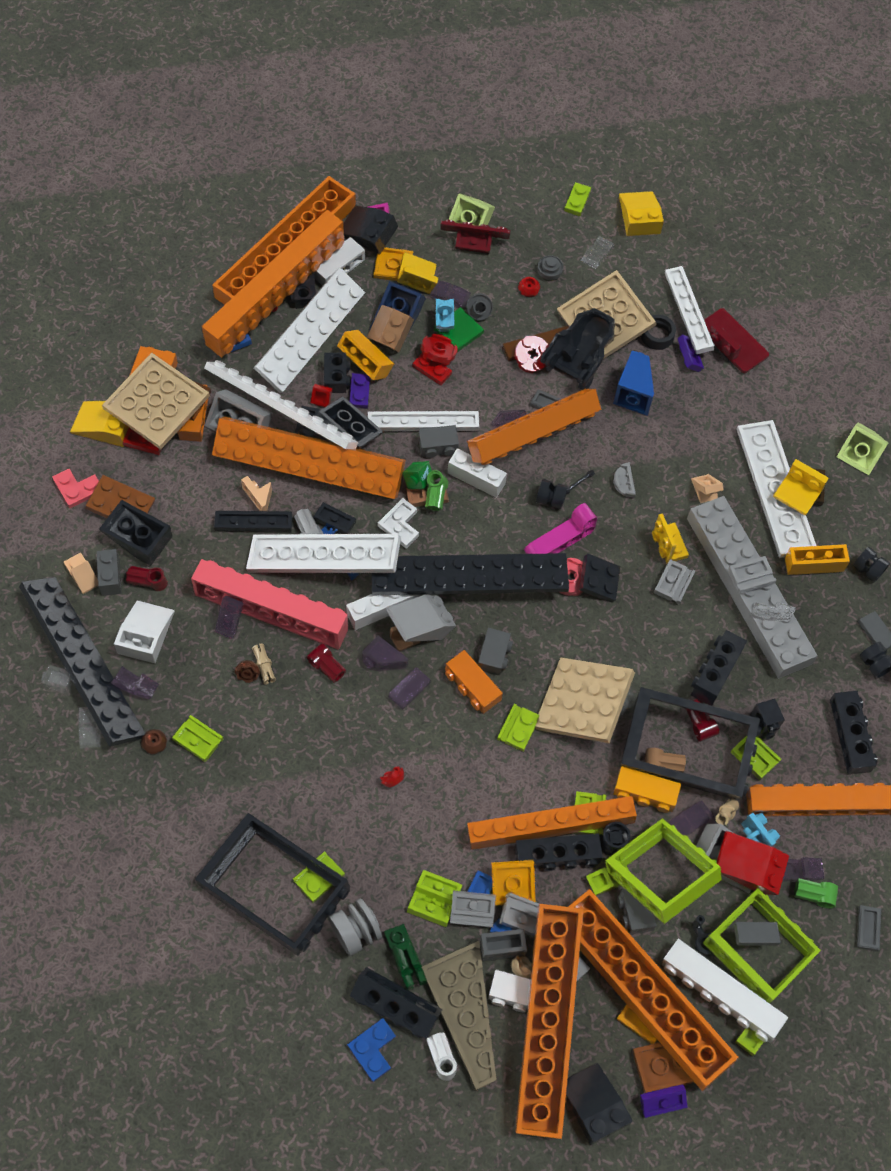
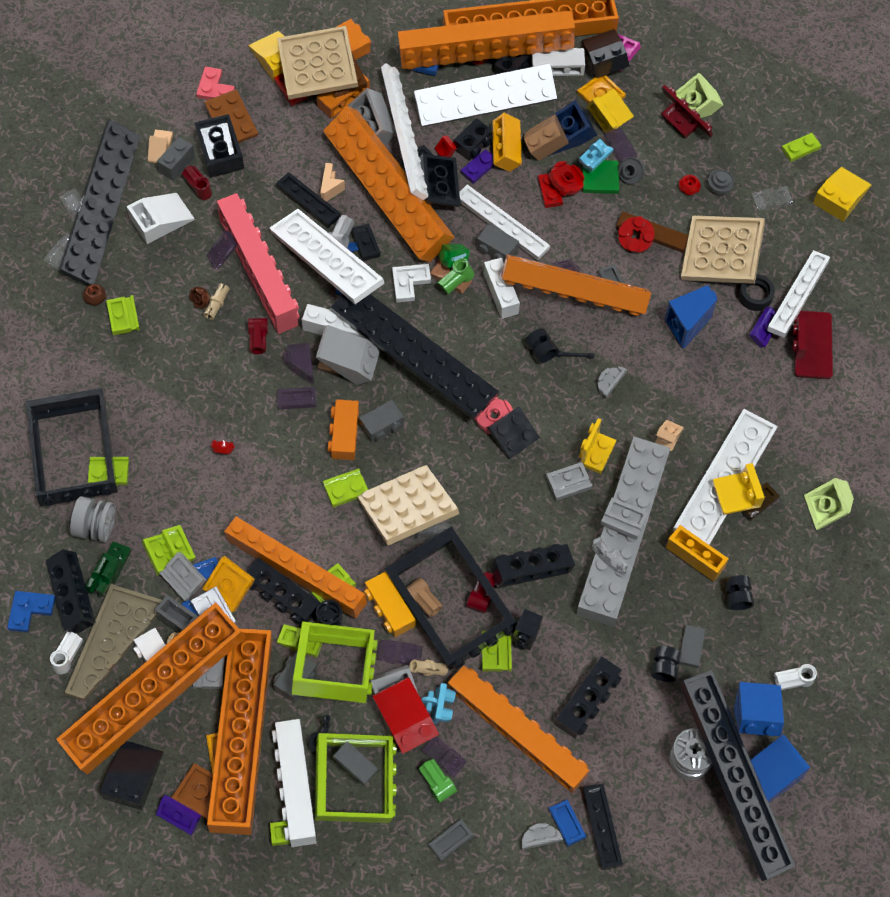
camera: 45 degrees right, 0 degrees up
(139, 686) = (117, 244): clear purple slope -> none
(558, 539) = (520, 382): dark pink beam -> none
(581, 346) = (674, 253): black animal -> none

